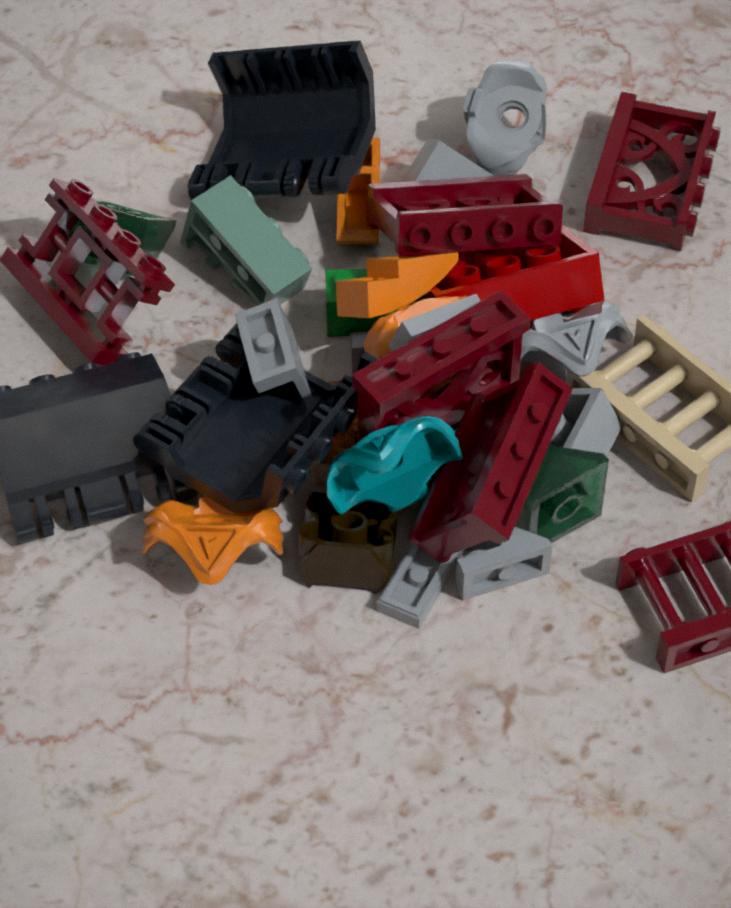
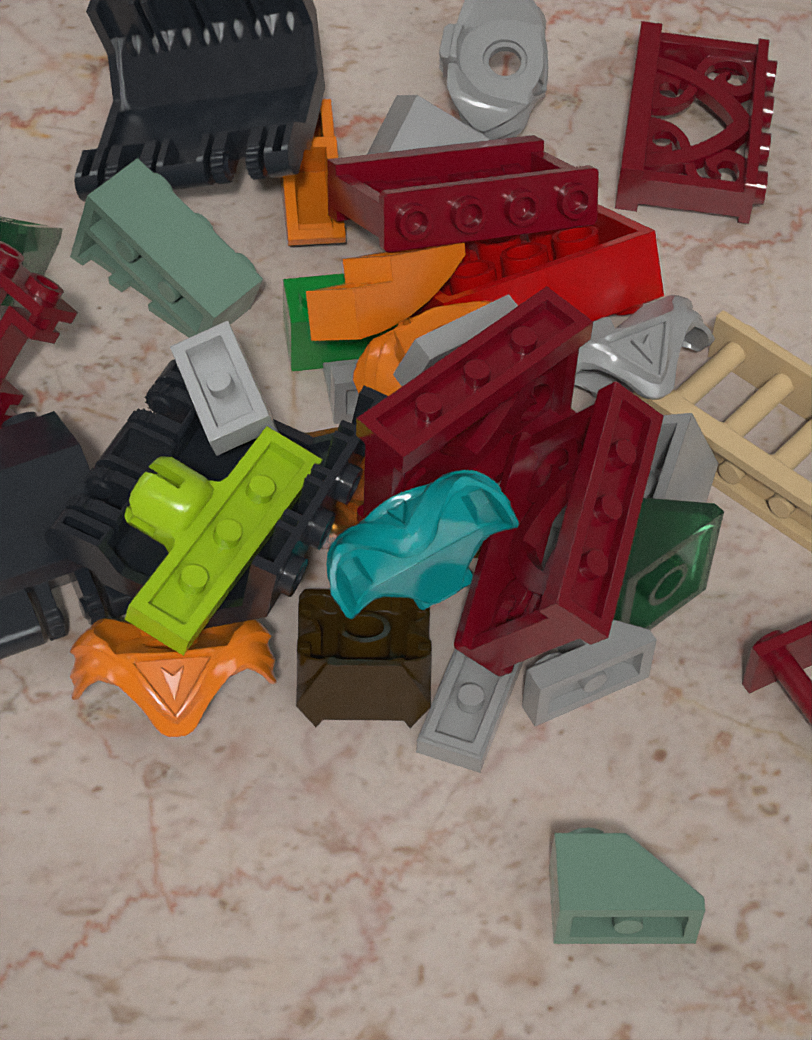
camera: 10 degrees left, 0 degrees up
(244, 445) = (209, 532): none -> lime plate
(498, 717) = (618, 893): none -> sand green slope

